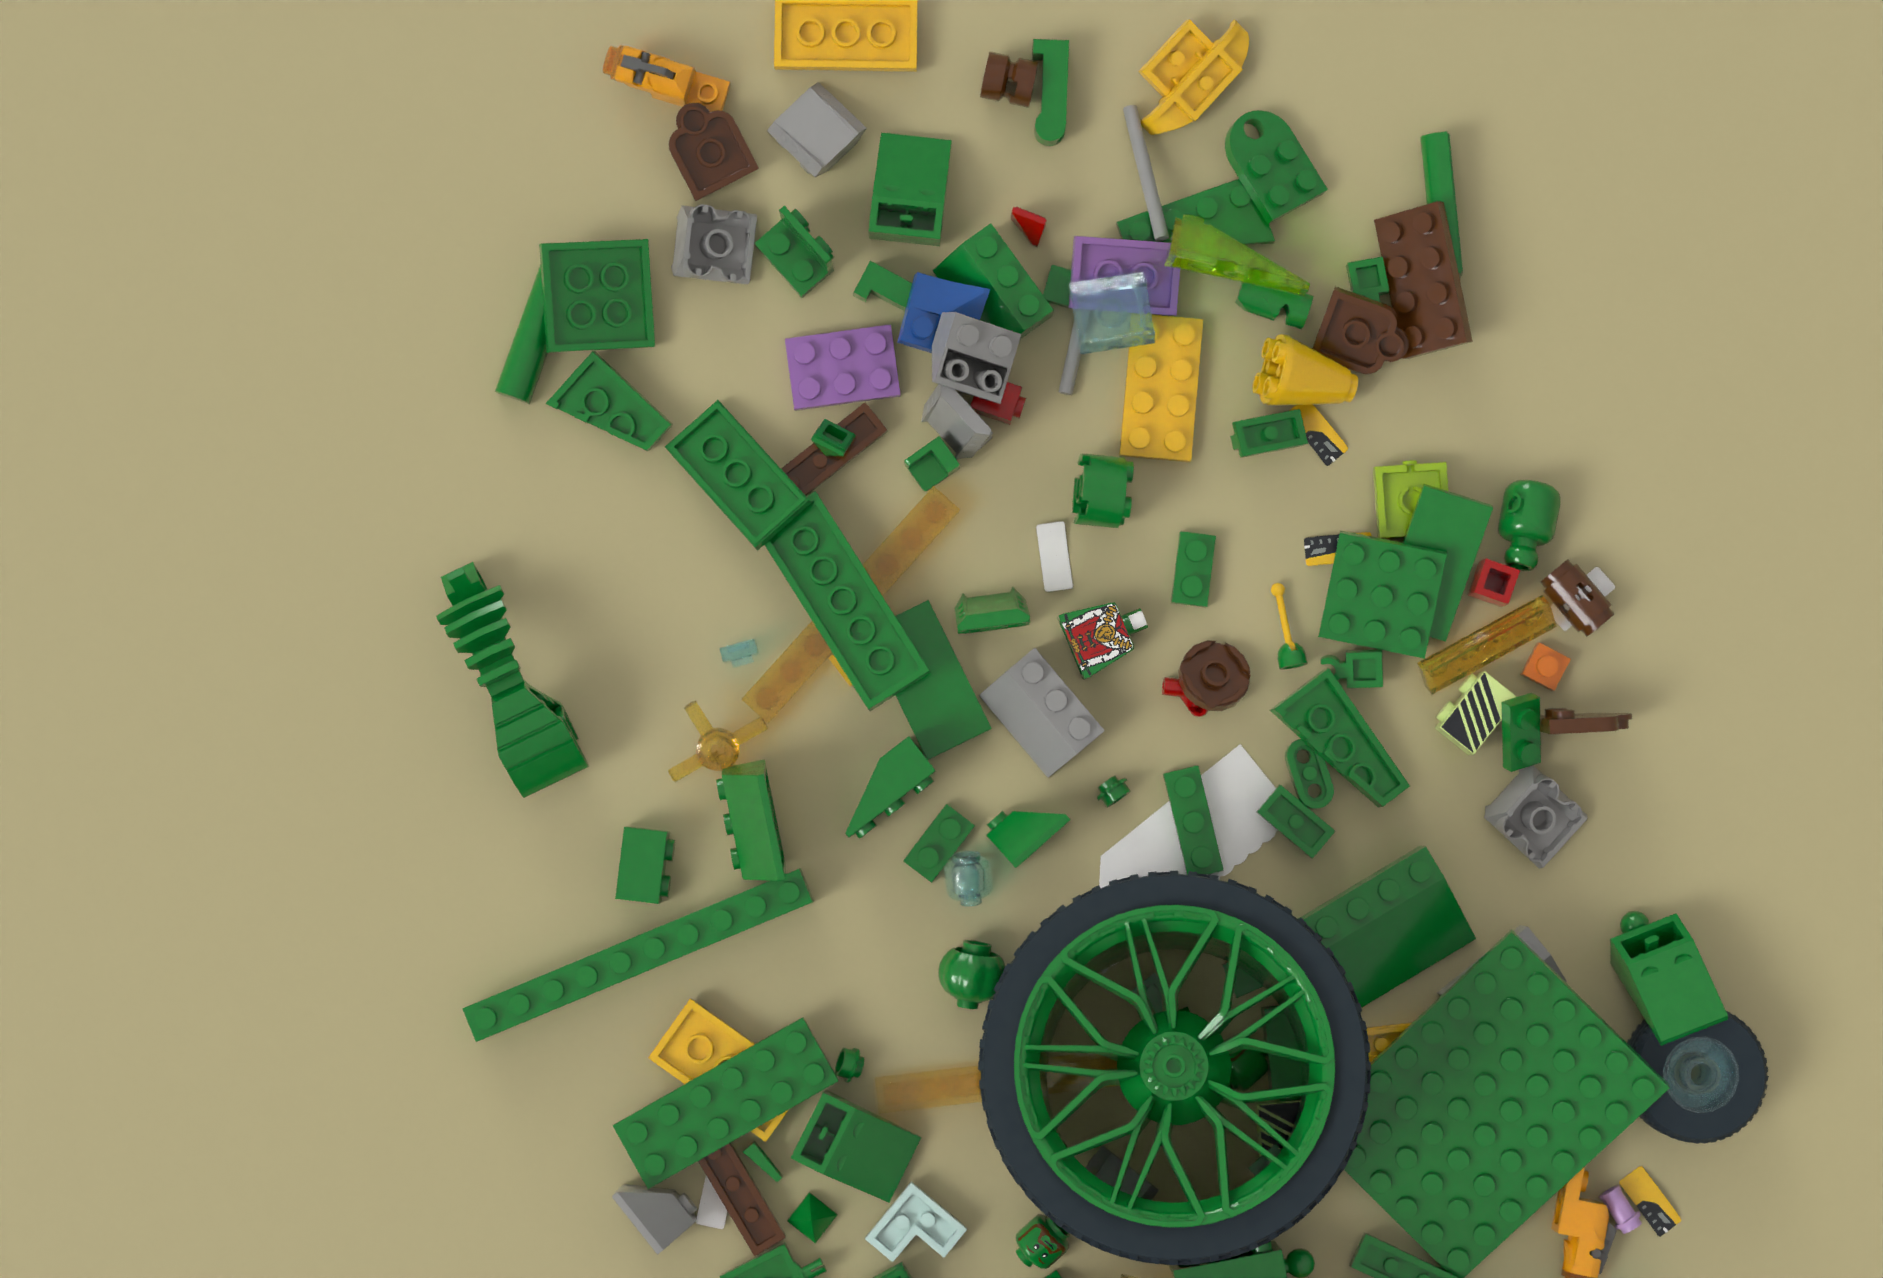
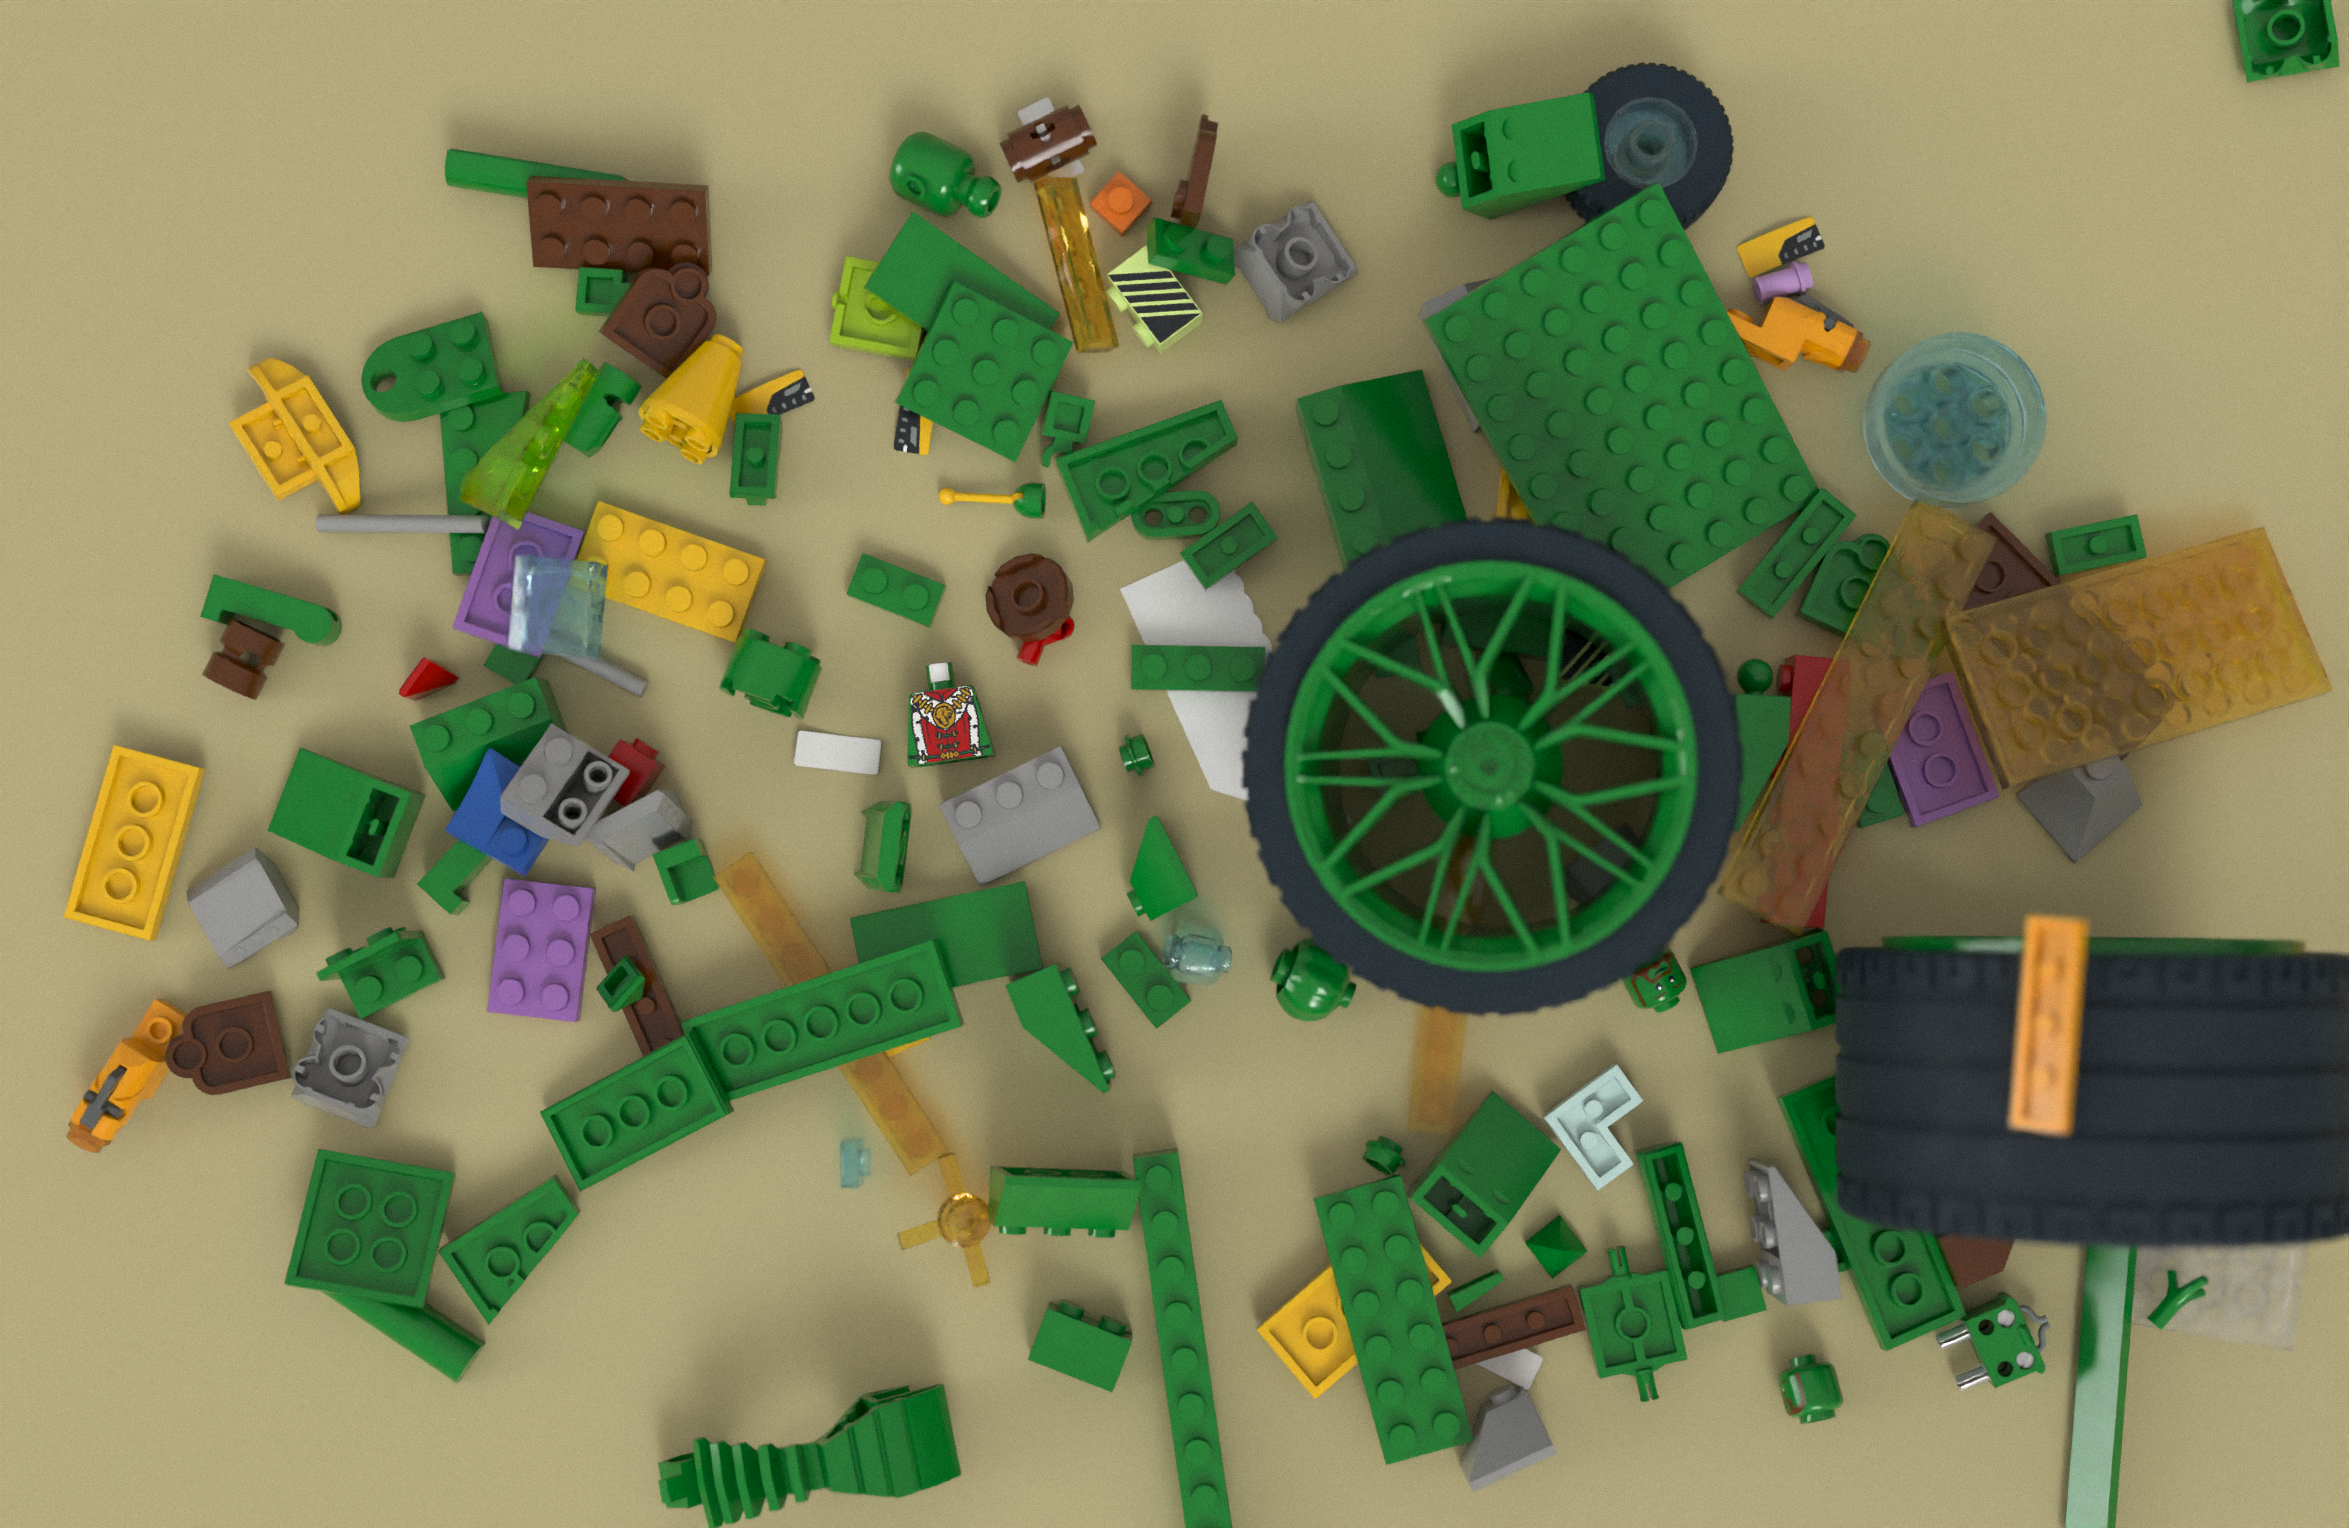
camera: 75 degrees left, 0 degrees up
(1493, 582) = (1004, 236): red brick -> none

